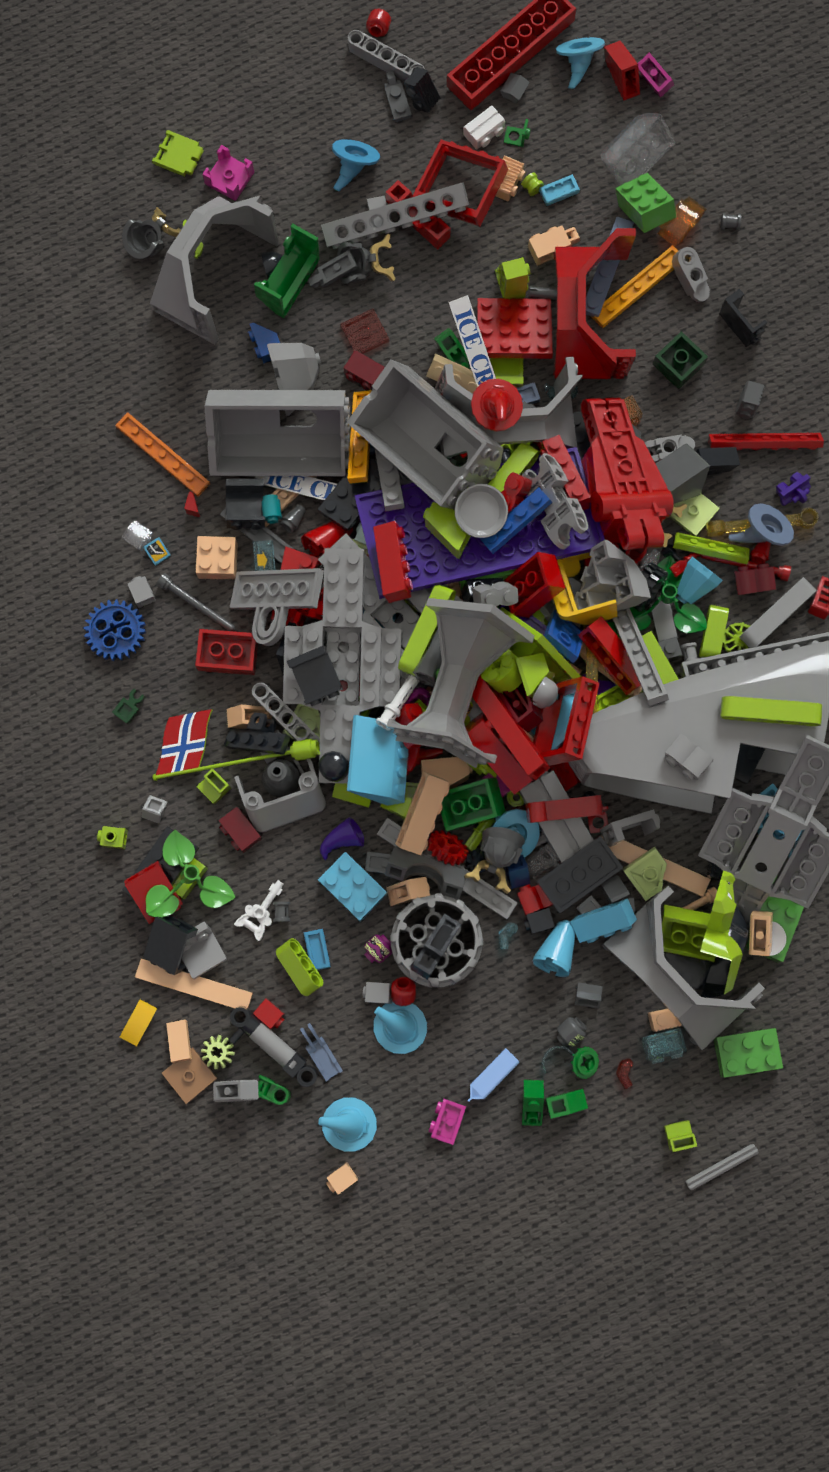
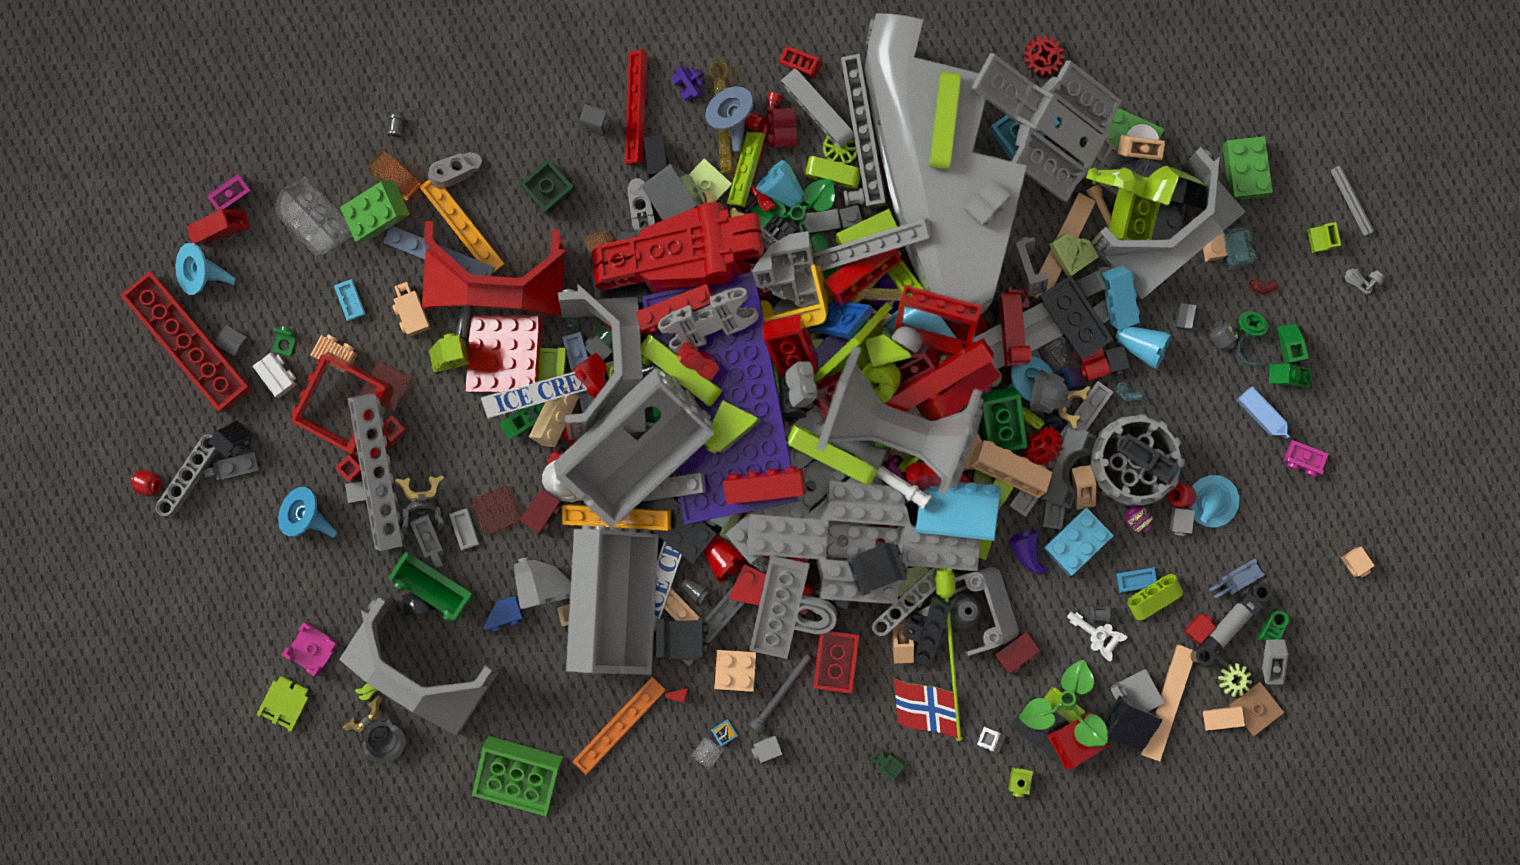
camera: 90 degrees left, 5 degrees up
(107, 615) = (790, 785): blue gear -> none
(114, 362) = (517, 776): none -> bright green slope
(138, 1022) = (1204, 758): yellow slope -> none
(213, 786) = (972, 678): lime piece -> none
(264, 555) = (738, 621): clear light blue tile -> none
(271, 508) = (687, 612): teal brick -> none
(333, 766) = (965, 554): black hair -> none
(345, 304) = (464, 529): none -> light grey tile
(349, 1124) = (1305, 554): medium azure piece -> none
(480, 236) = (398, 385): none -> clear red tile
(481, 510) = (719, 393): light grey piece -> none
(496, 404) = (609, 372): red piece -> none
(518, 519) = (727, 359): blue plate -> none
(532, 184) = (342, 327): lime wheel -> none
(639, 1171) = (1355, 278): none -> light grey piece
(738, 323) = (509, 126): black panel -> none

